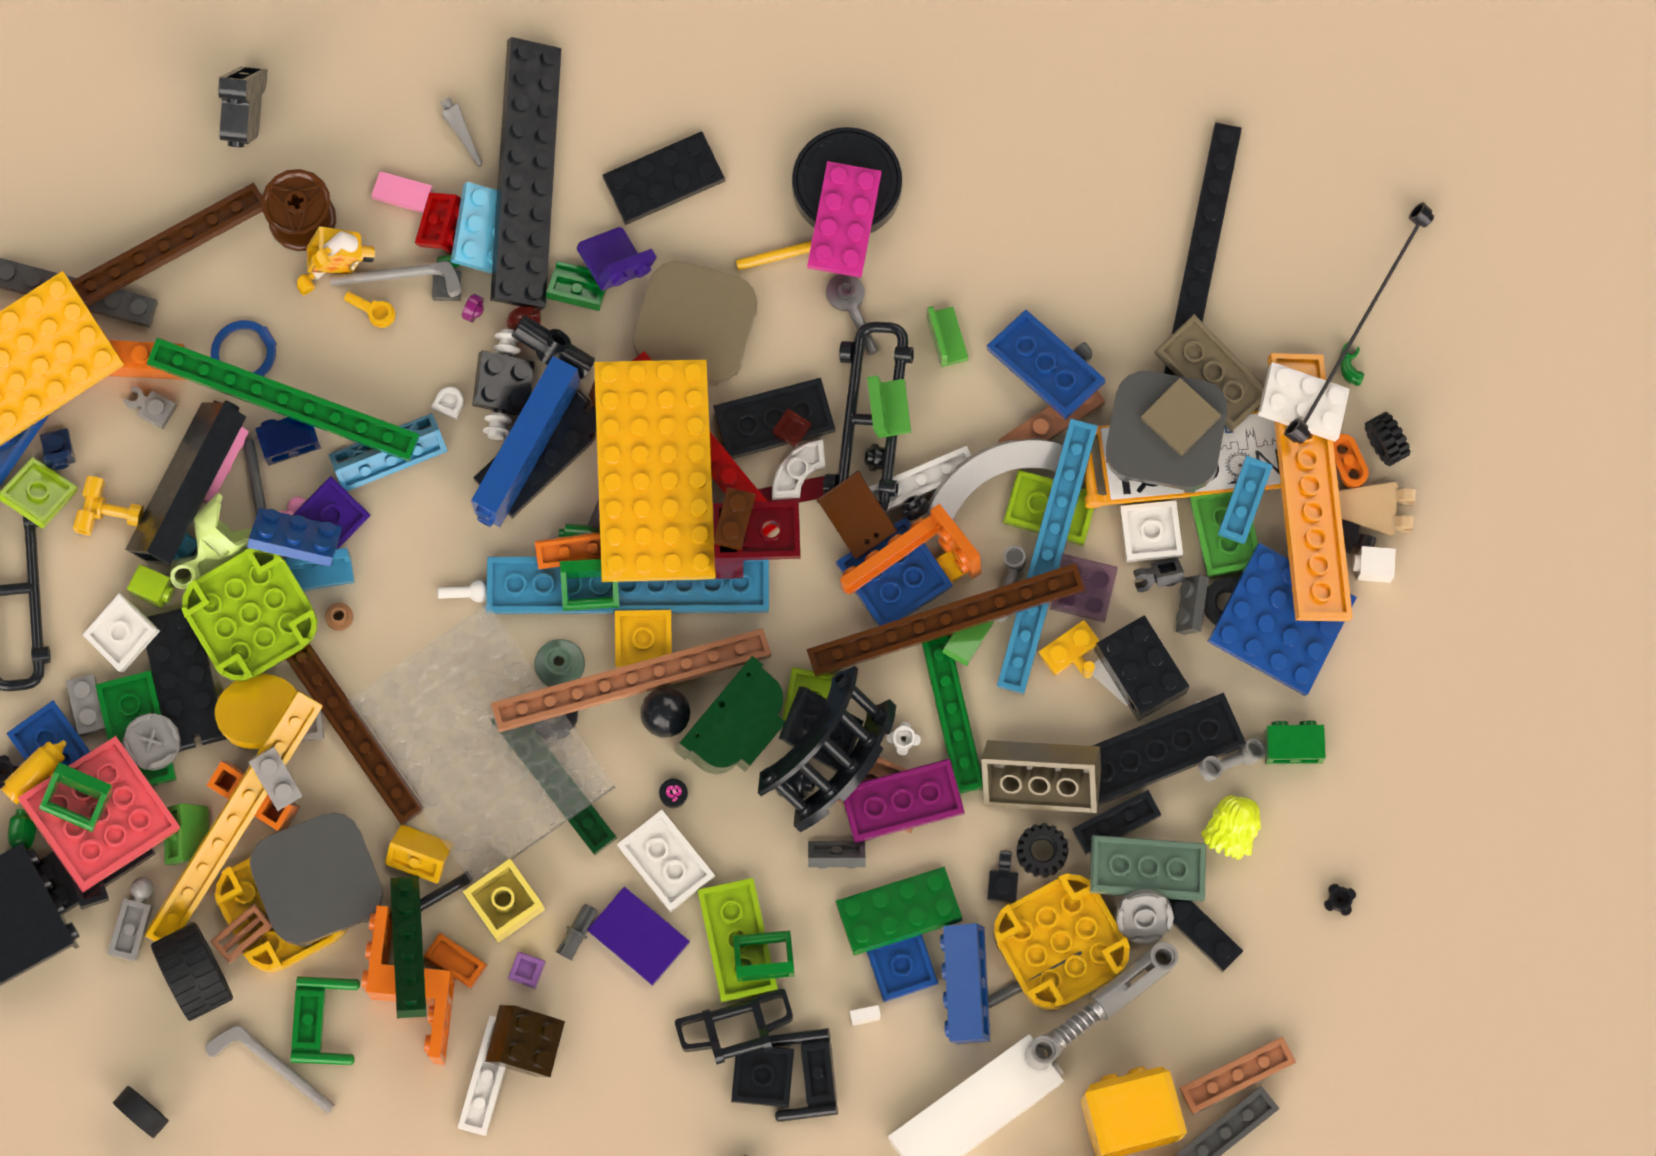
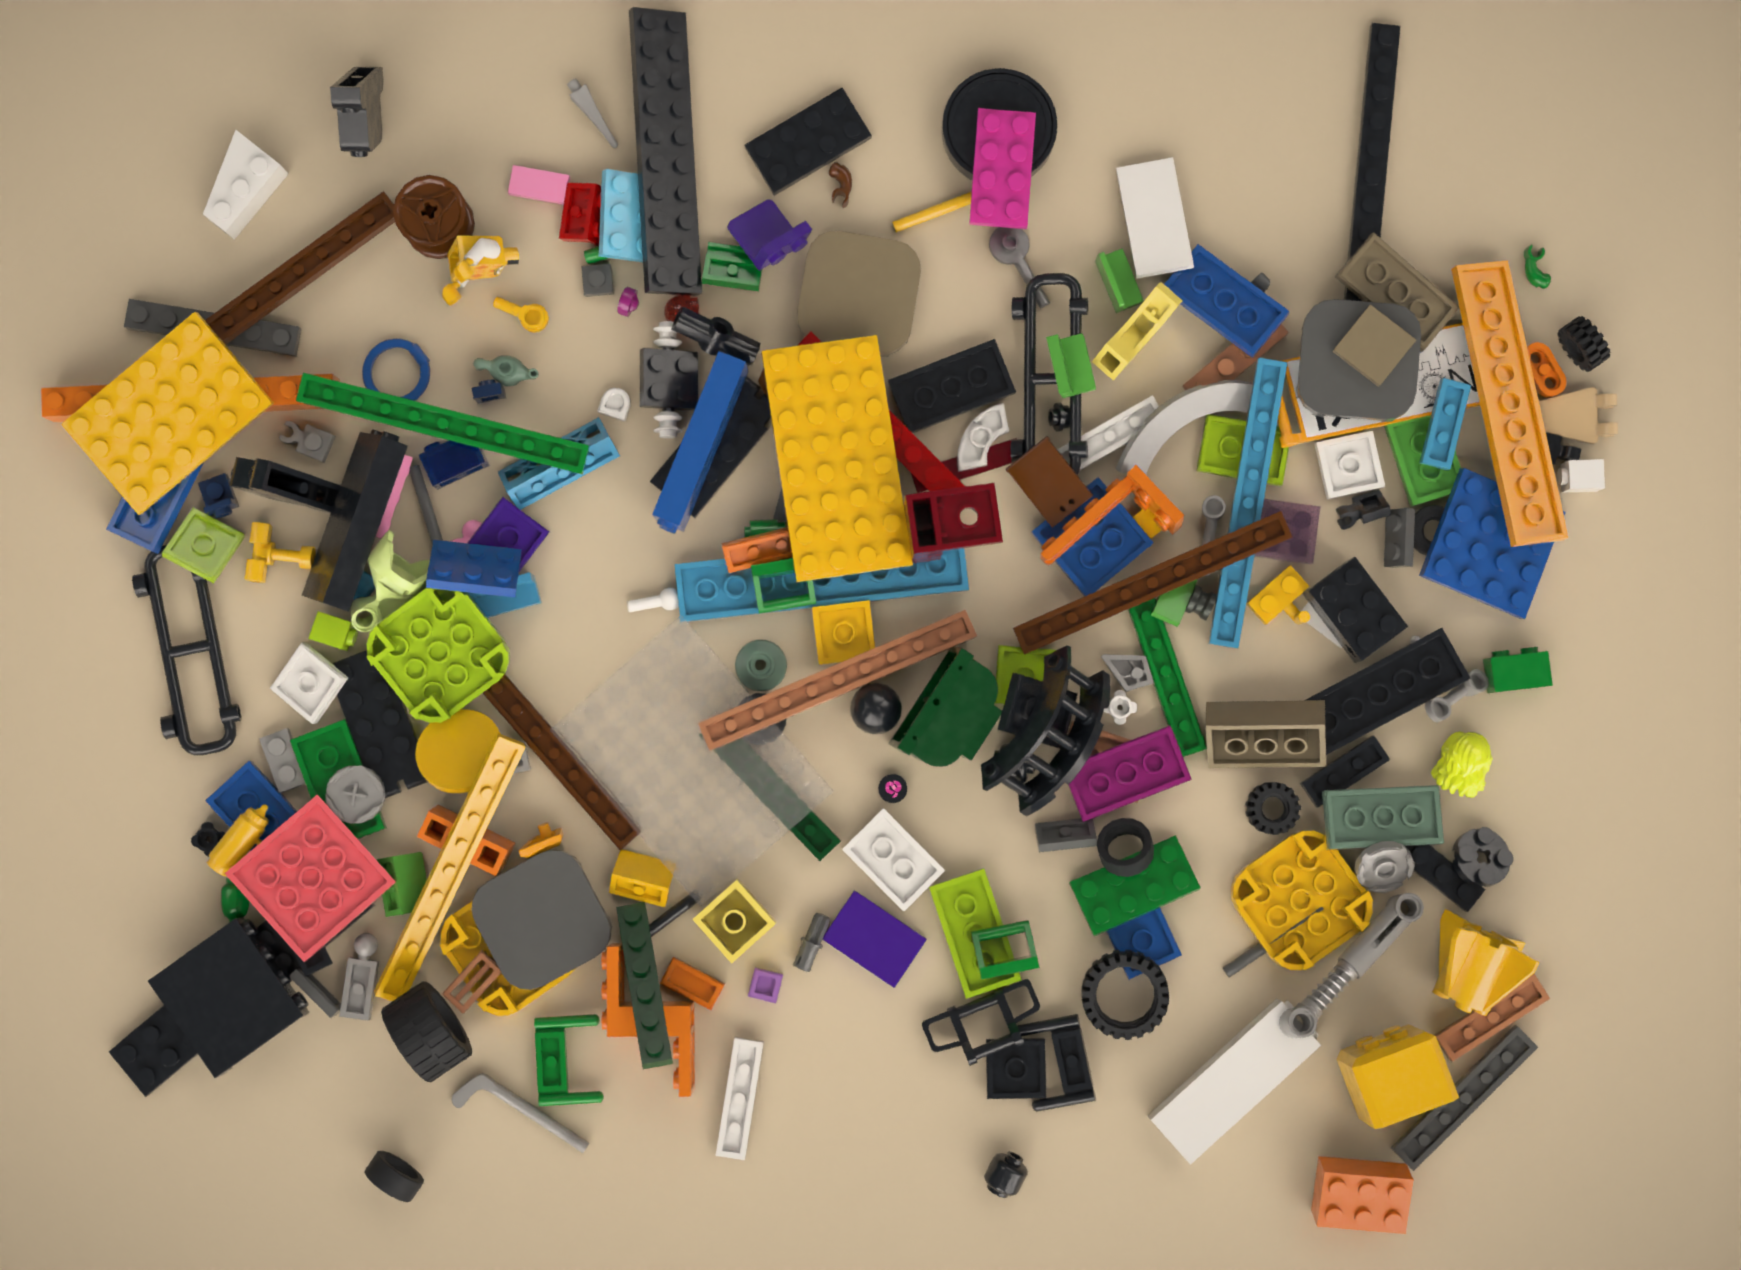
camera: 10 degrees left, 10 degrees up
(82, 783) = (290, 852): green tile -> none
(88, 927) = (317, 992): none -> dark grey tile
(121, 164) = (242, 185): none -> white wedge
(122, 440) = (283, 484): none -> black brick
(275, 778) = (486, 826): light grey plate -> none
(329, 377) = (488, 391): none -> dark blue plate
(331, 805) = (543, 842): none -> light orange piece
(339, 625) = (539, 641): medium nougat plate -> none
(349, 359) = (506, 369): none -> sand green piece
(441, 268) = (590, 263): light grey piece -> none
(524, 1041) = (773, 1063): dark brown brick -> none
(694, 214) = (844, 177): none -> reddish brown arm
(734, 519) = (930, 510): reddish brown plate -> none
(791, 428) = (971, 396): clear red tile -> none
(844, 1025) = (1132, 1028): none -> black tyre
(865, 1015) = (1112, 996): white tile -> none
(895, 886) = (1121, 827): none -> black tyre
(914, 507) = (1106, 466): black plate -> none
(916, 704) = (1129, 670): none -> light grey piece
(958, 385) = (1137, 331): none -> light yellow arch
(965, 983) = (1211, 955): blue brick -> none
(986, 281) = (1154, 218): none -> white tile
(992, 646) = (1201, 602): none -> pearl dark grey wheel
(1003, 883) = (1236, 846): black plate -> none
(1223, 1018) = (1478, 965): none -> yellow brick
(1247, 904) = (1496, 852): none -> black plate
(1291, 394) = (1495, 314): white plate -> none
(1298, 430) = (1495, 346): black piece -> none
(1346, 894) = (1584, 829): black plate -> none

